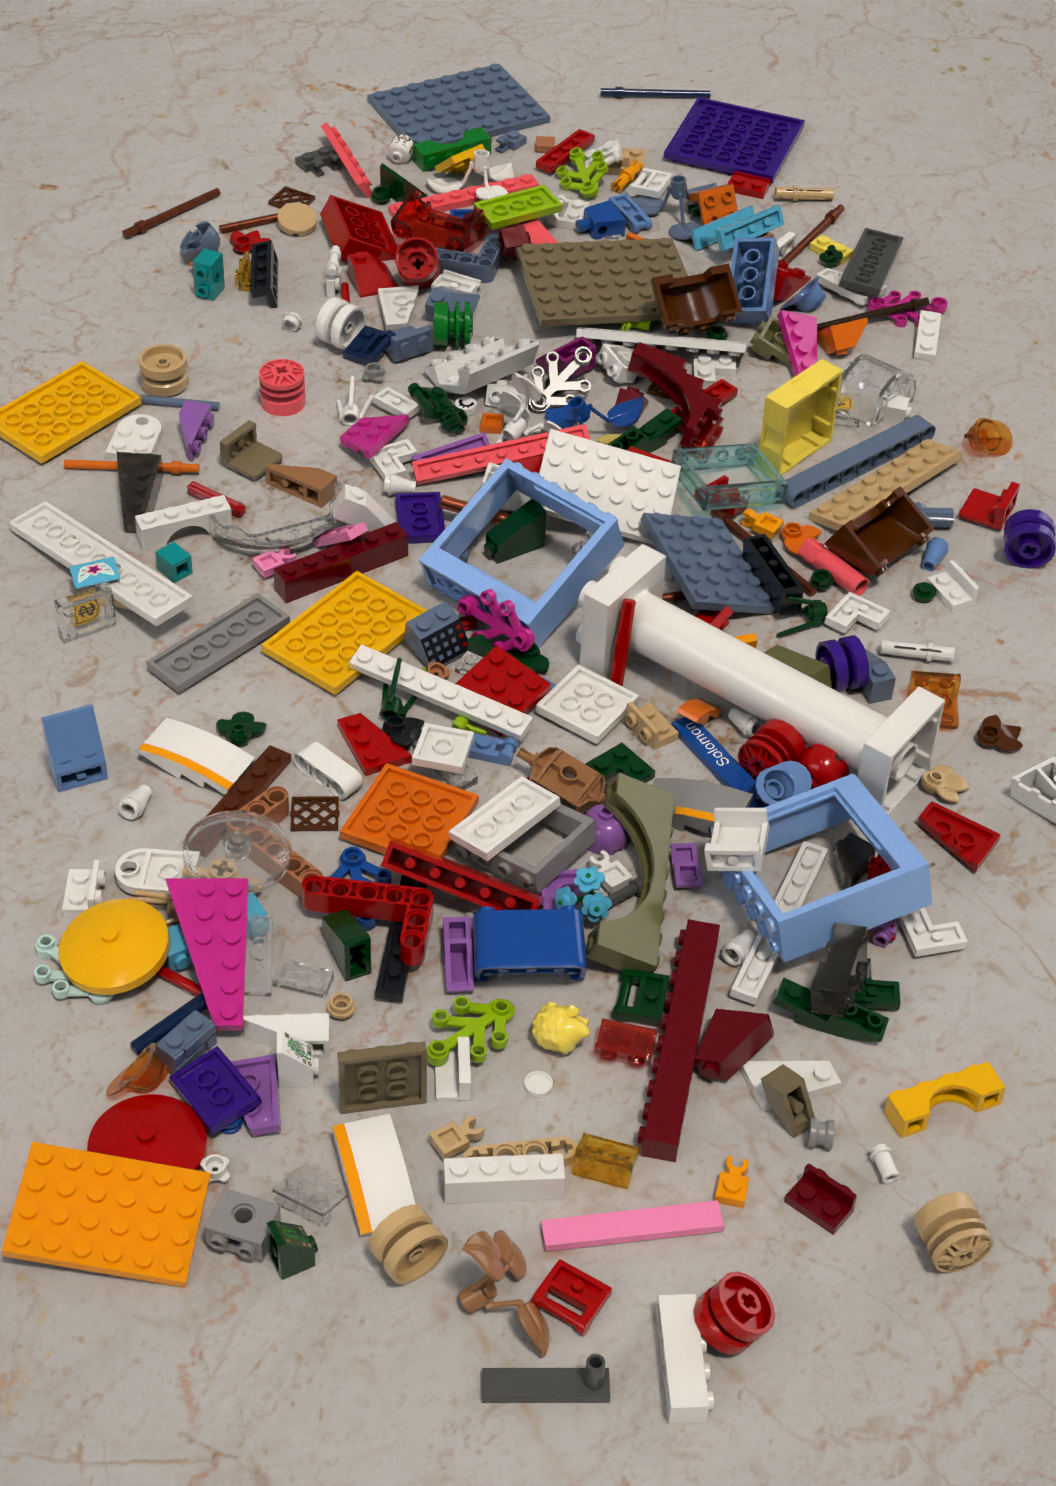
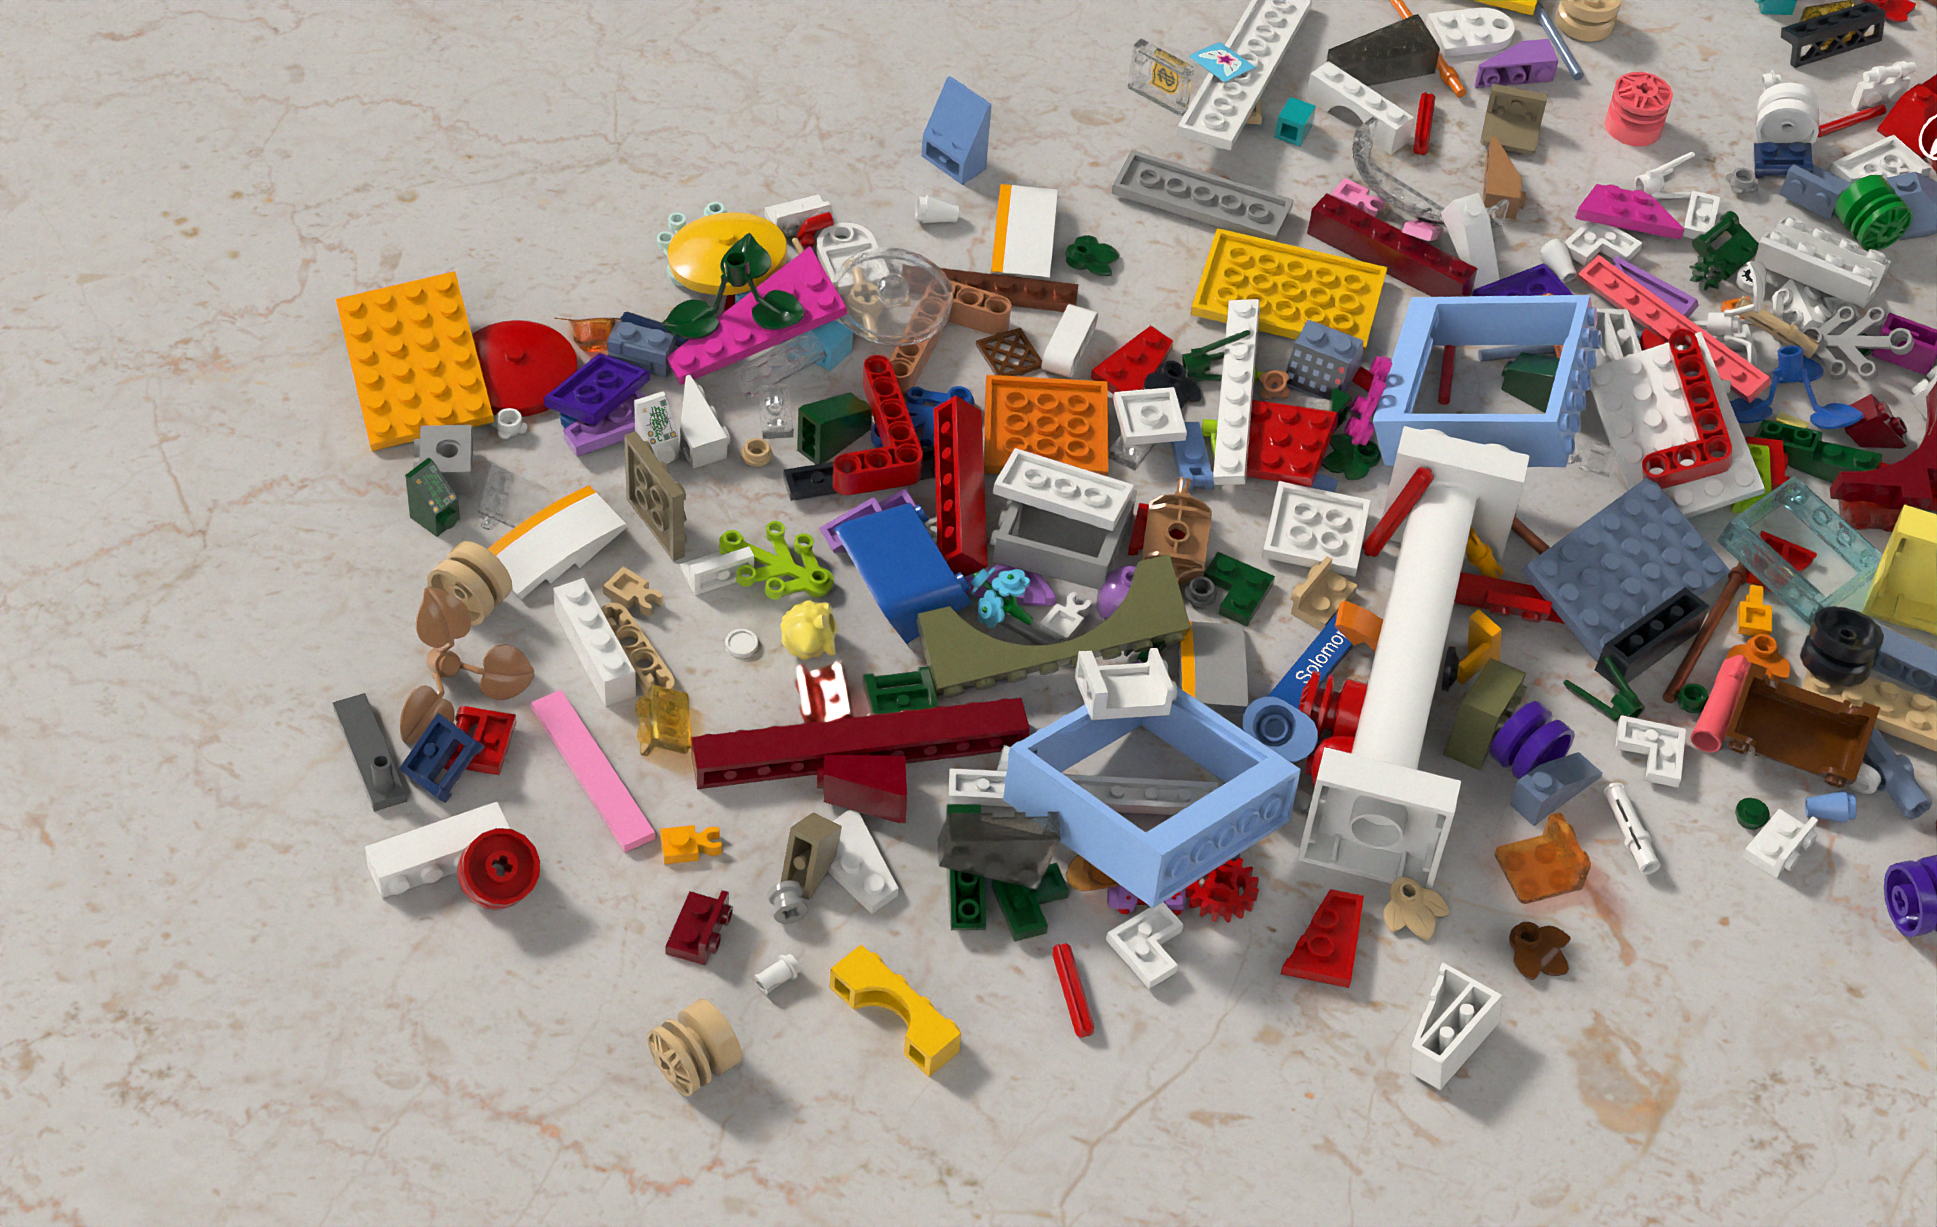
camera: 65 degrees right, 5 degrees up
(110, 882) = (811, 226): none -> red arm
(153, 927) = (739, 266): none -> dark green plant
(539, 407) = (1781, 330): none -> tan pin
(580, 1329) = (433, 753): none -> dark blue plate
(615, 464) = (1699, 415): none -> red beam
(825, 488) = (1841, 646): none -> black wheel
(954, 990) = (1073, 990): none -> red axle

